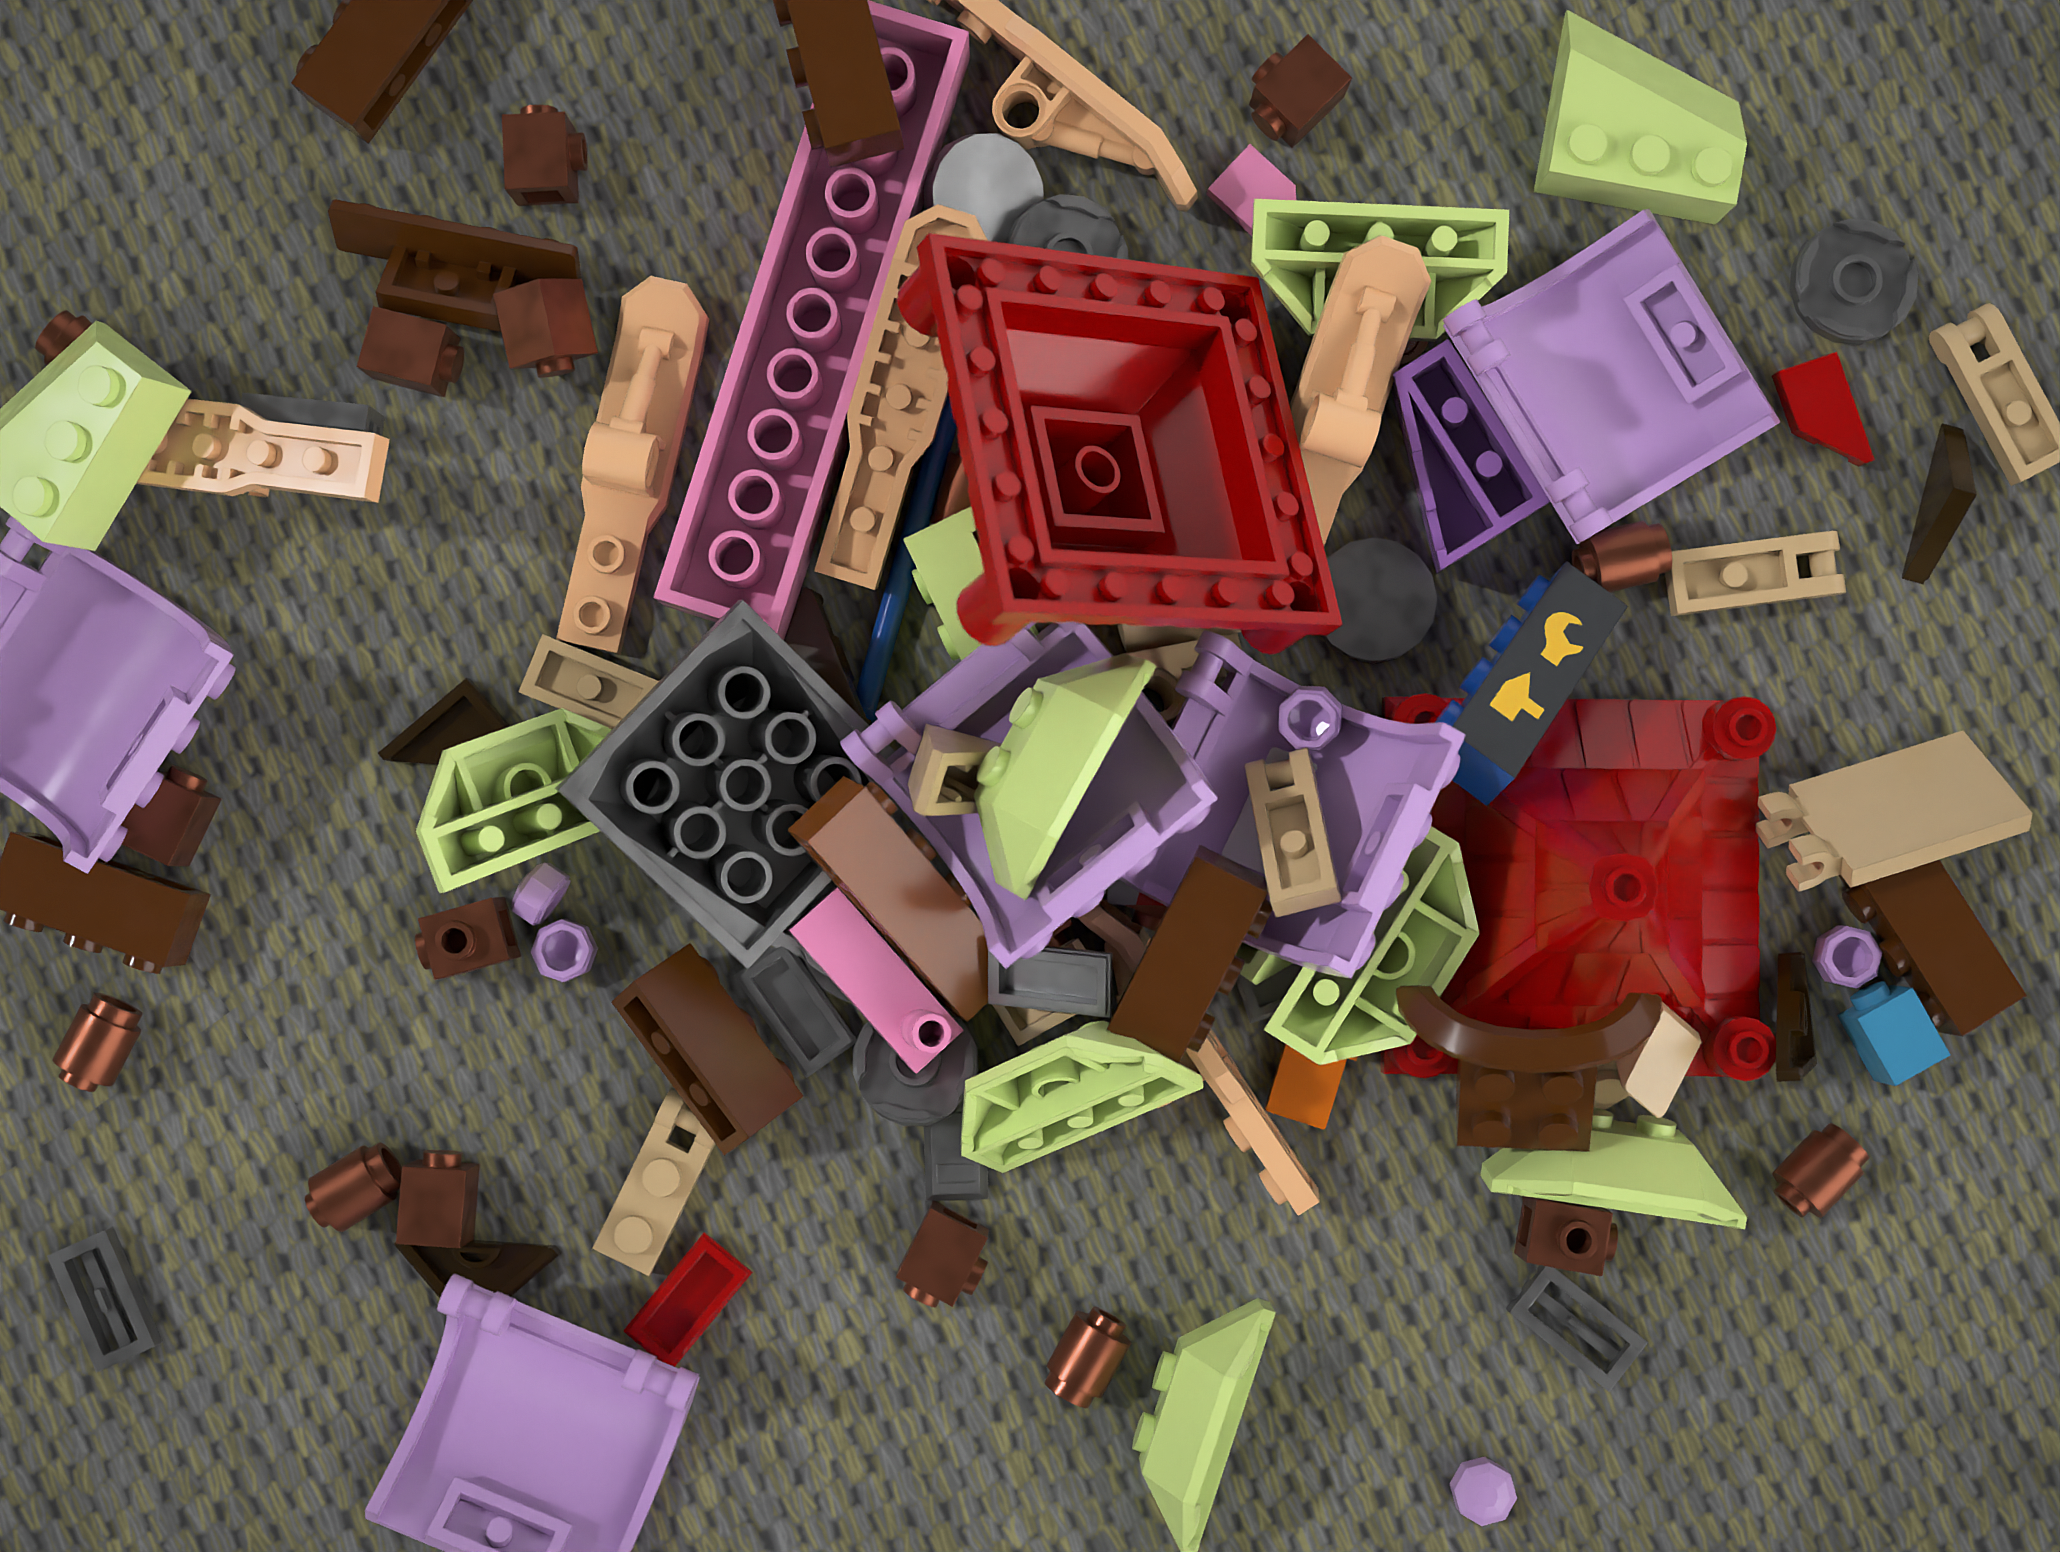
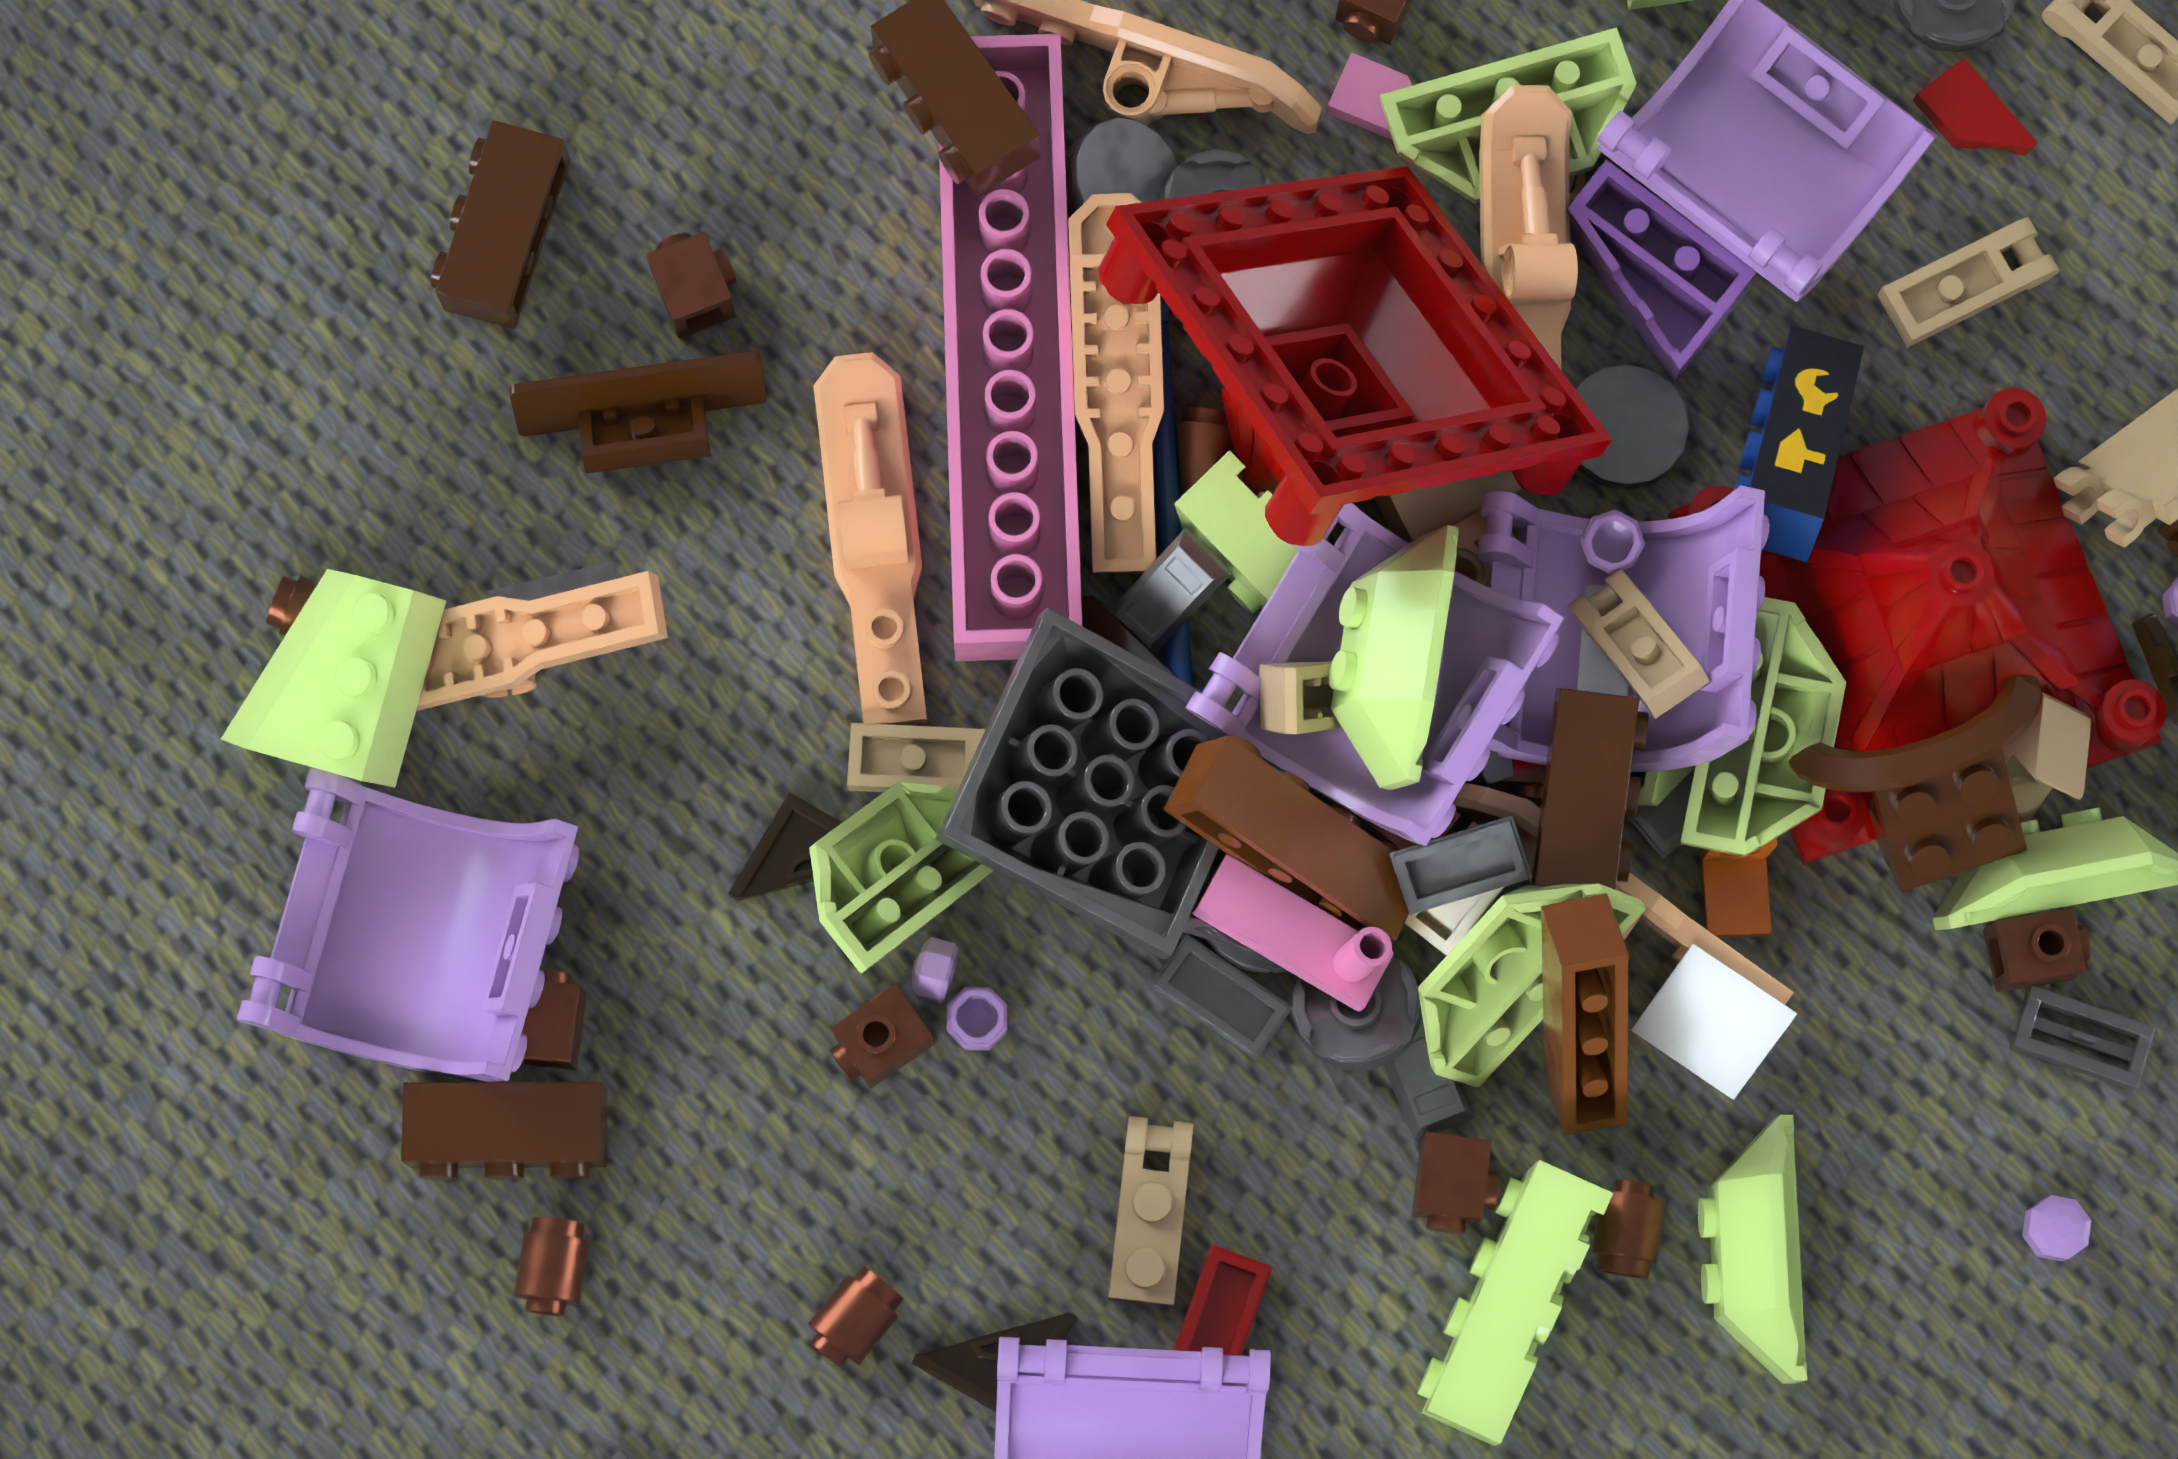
camera: 20 degrees left, 10 degrees down
(411, 352) = (631, 504): copper brick -> none
(438, 1200) = (941, 1300): copper brick -> none
(546, 325) = (753, 434): copper brick -> none
(707, 1048) = (1153, 1058): reddish brown brick -> none
(879, 615) = (1171, 590): none -> flat silver tile
(953, 1388) = (1512, 1301): none -> yellowish green wedge
(1110, 1162) = (1585, 1013): none -> dark orange brick
(1238, 1195) = (1713, 1021): none -> white sticker
(1625, 555) = (1843, 303): copper brick -> none
(1943, 503) = (2116, 162): dark brown tile -> none

